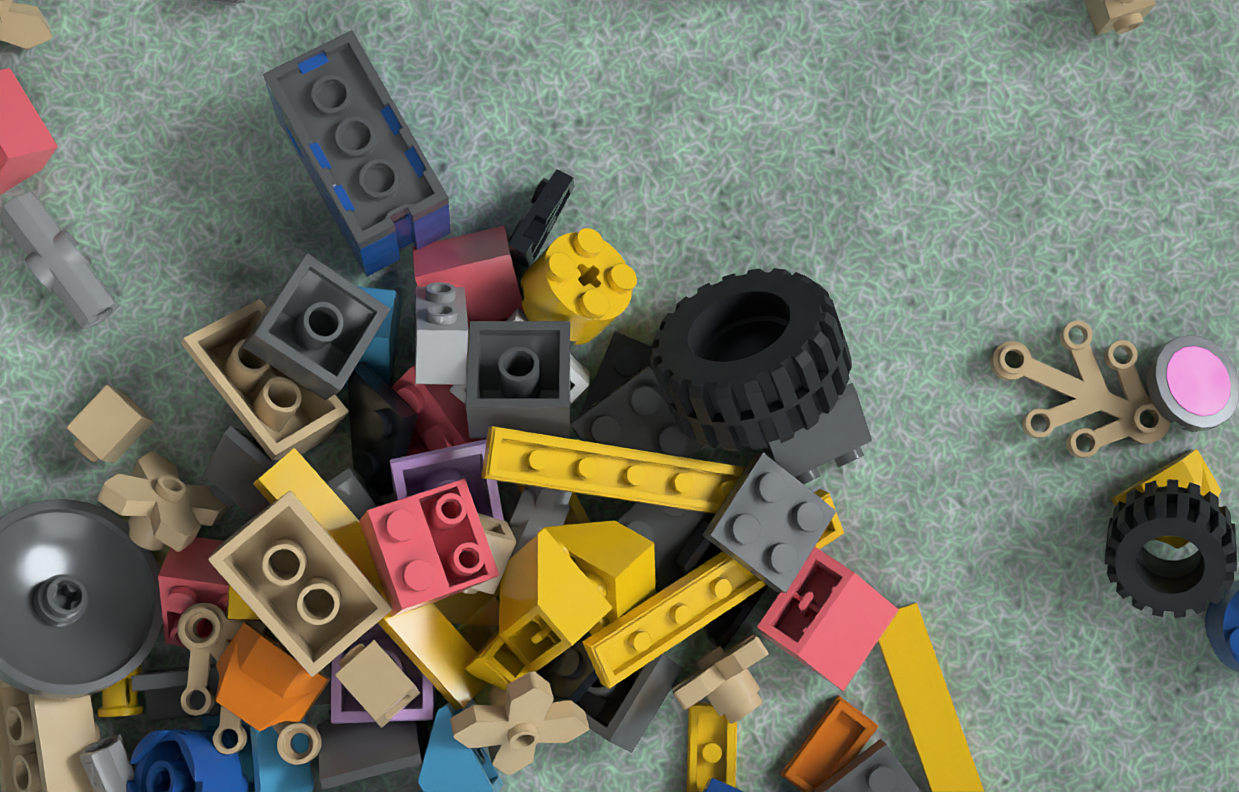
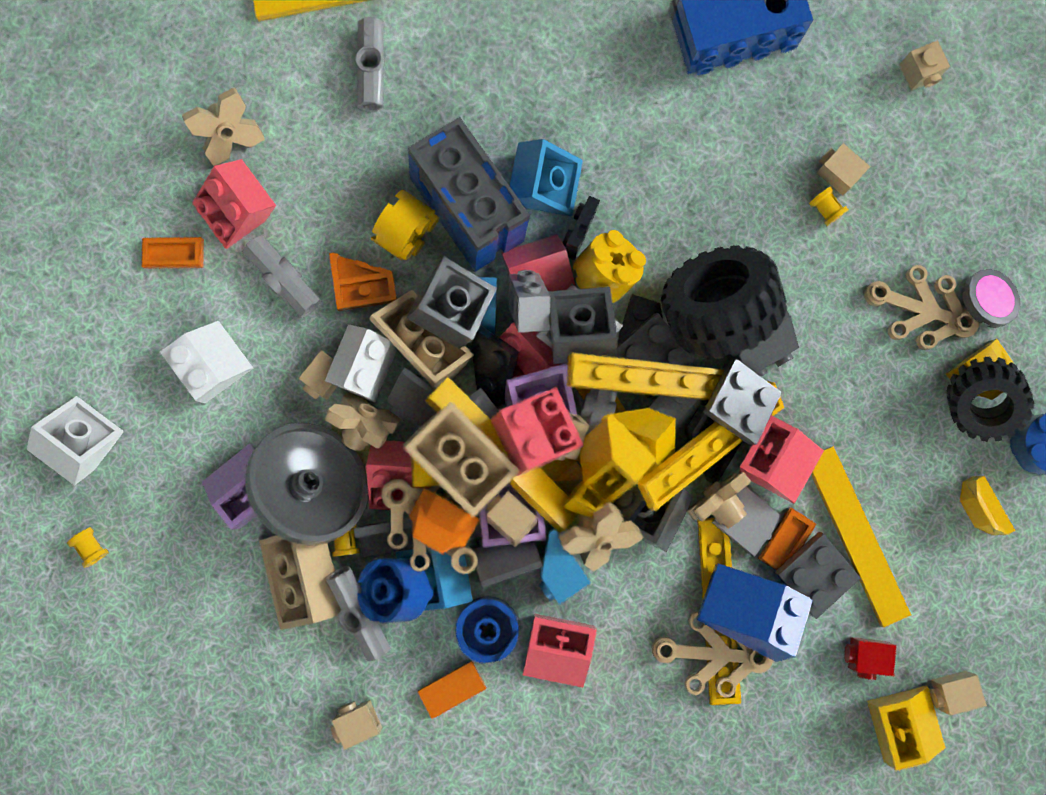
camera: 10 degrees left, 0 degrees up
(167, 413) = (361, 362): none -> white slope
(182, 282) = (360, 284): none -> orange wing
(256, 195) = (404, 225): none -> yellow brick
(491, 134) = (546, 177): none -> dark azure slope
(781, 718) = (755, 526): none -> light grey piece
(943, 214) = (828, 206): none -> yellow bush
(970, 154) = (842, 168): none -> tan brick
(1150, 721) = (984, 507): none -> yellow slope

